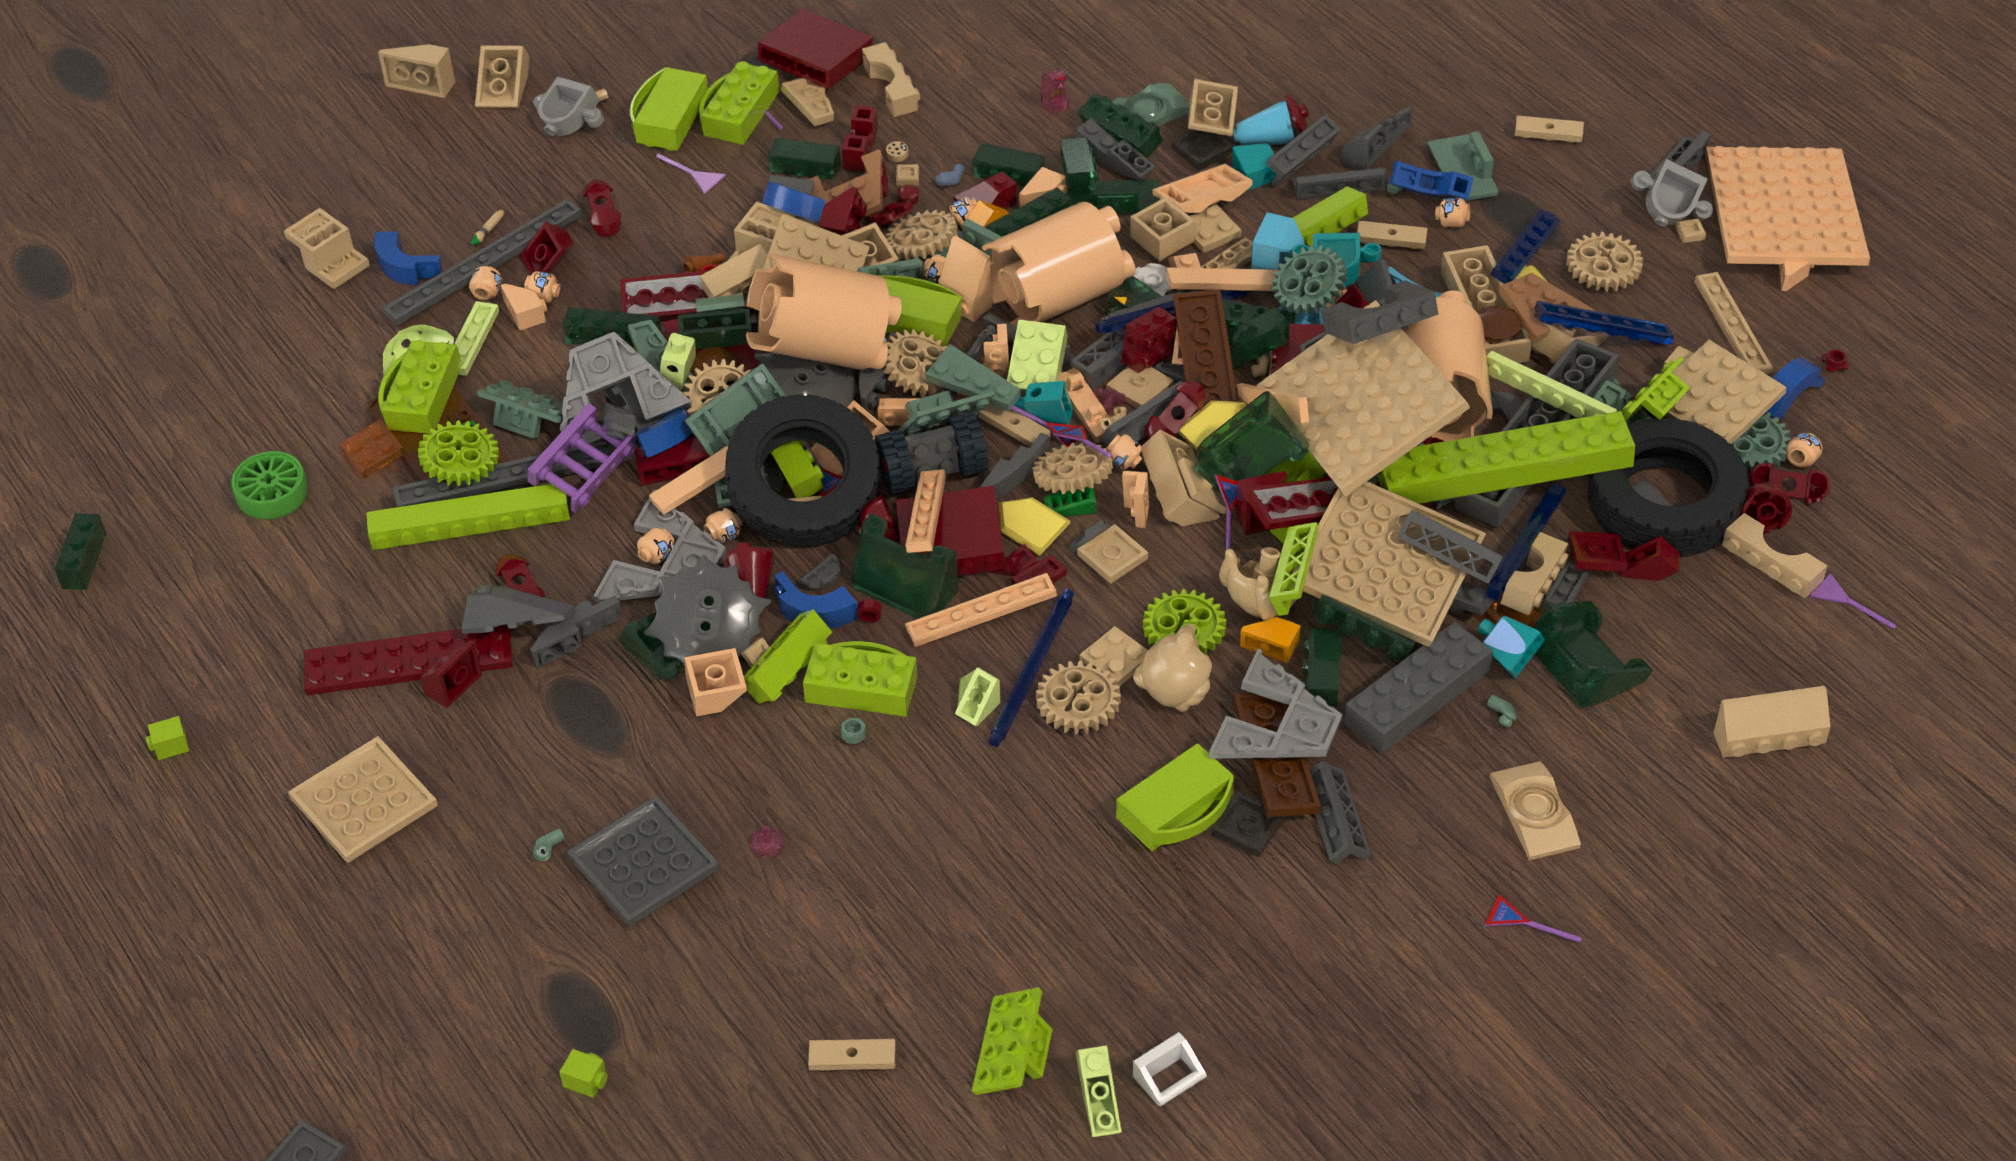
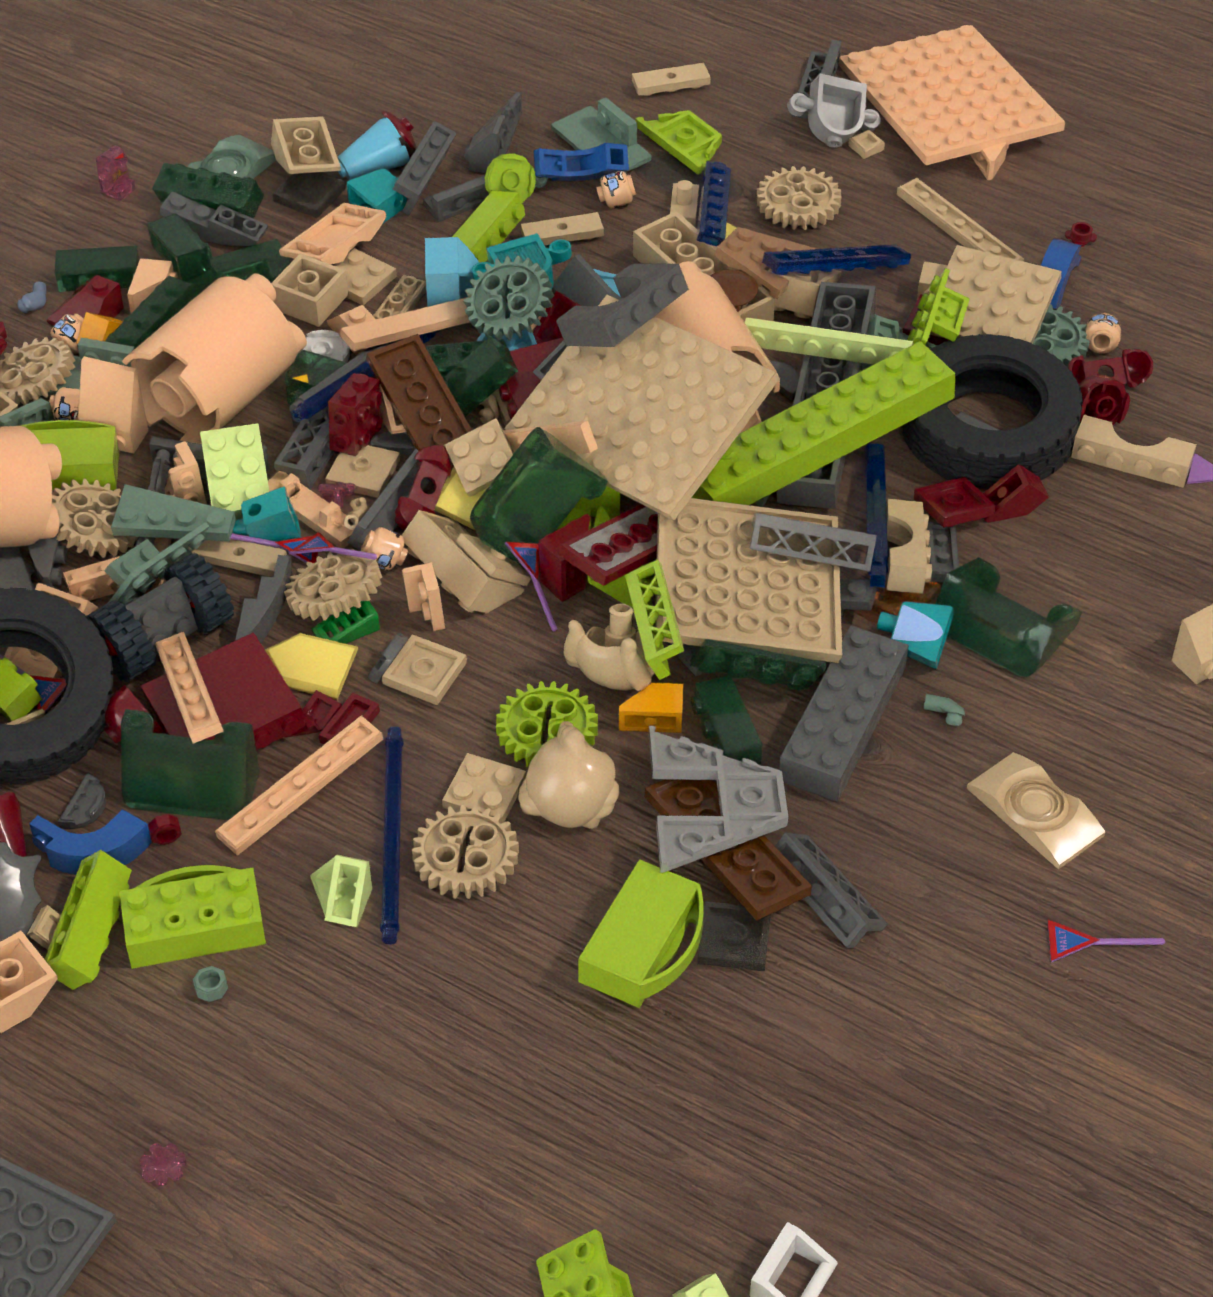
camera: 25 degrees left, 0 degrees up
(1226, 399) = (480, 456): none -> tan plate
(1368, 177) = (510, 174): none -> lime tile
(1505, 238) = (685, 200): none -> tan tile
(1534, 183) = (683, 137): none -> lime wing

